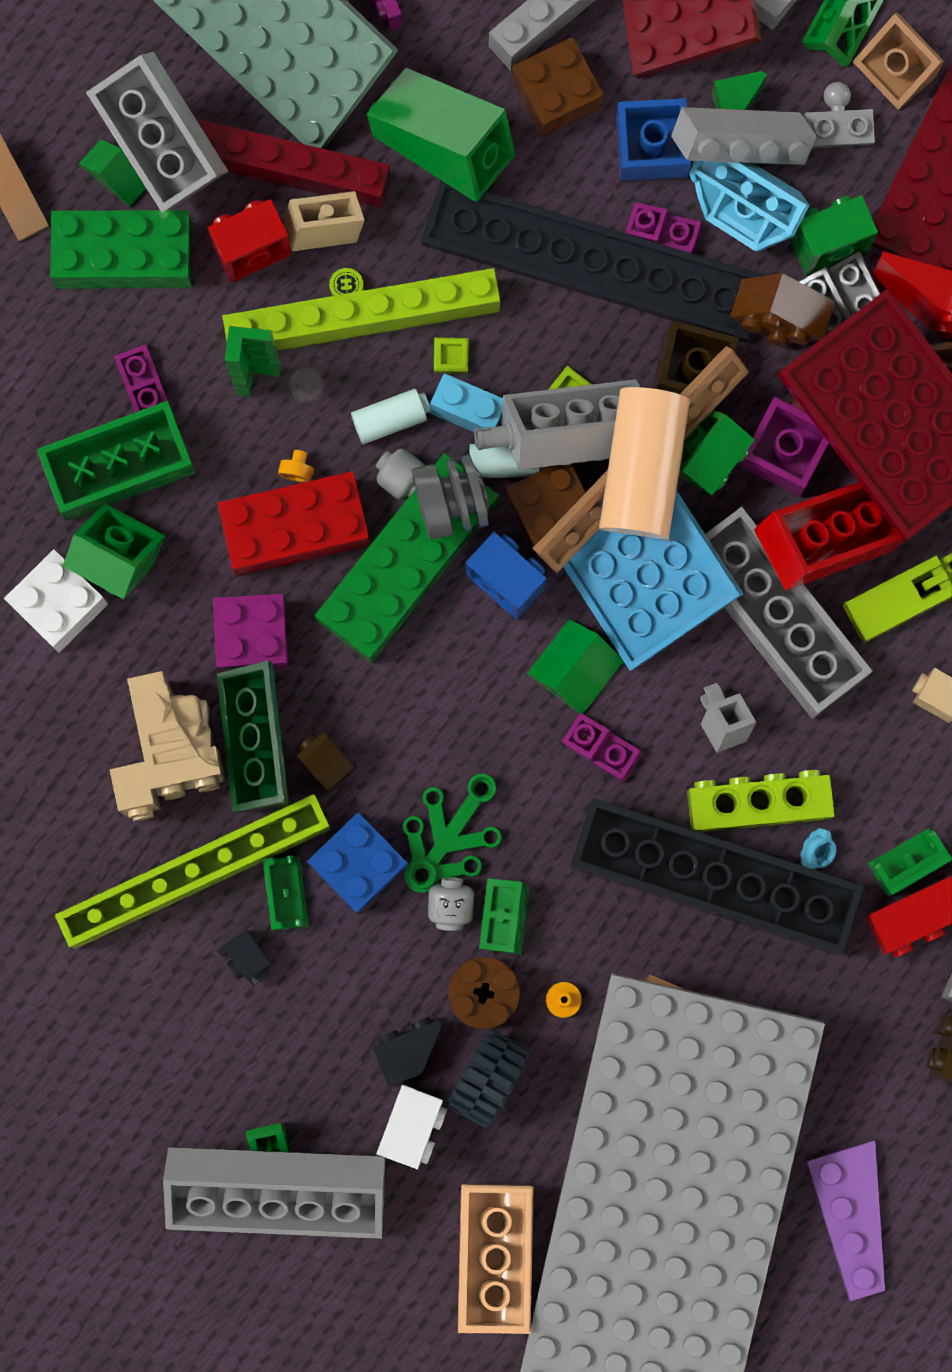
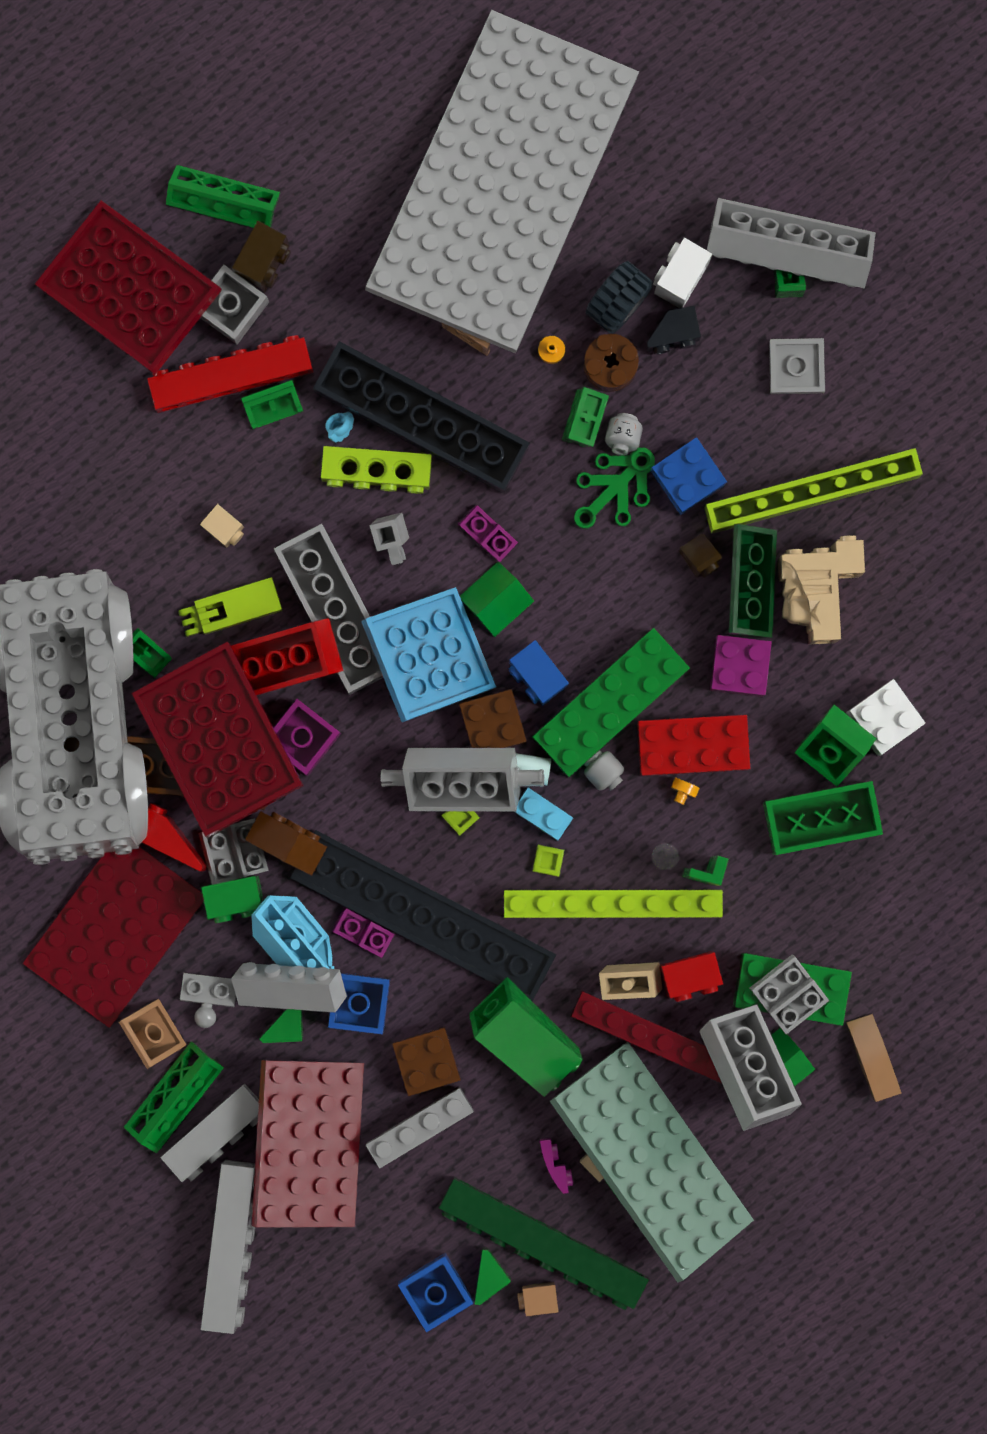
camera: 170 degrees left, 5 degrees up
(123, 232) = (789, 994): none -> light grey slope
(140, 378) = (792, 881): magenta slope -> none
(241, 1034) = (797, 366): none -> light grey plate
(246, 958) = (783, 421): black brick -> none
(285, 893) = (746, 464): green hinge -> none
(345, 281) = (620, 931): lime tile -> none
(390, 415) = (604, 818): light aqua brick -> none
(450, 497) = (572, 732): dark grey wheel -> none
(495, 1258) = (636, 169): light nougat brick -> none
(584, 517) = (419, 740): medium nougat tile -> none
(644, 462) = (419, 730): light nougat brick -> none
(686, 354) = (362, 813): dark brown brick -> none
(713, 452) = (366, 743): green brick -> none
(850, 1207) = (367, 161): medium lavender wing -> none

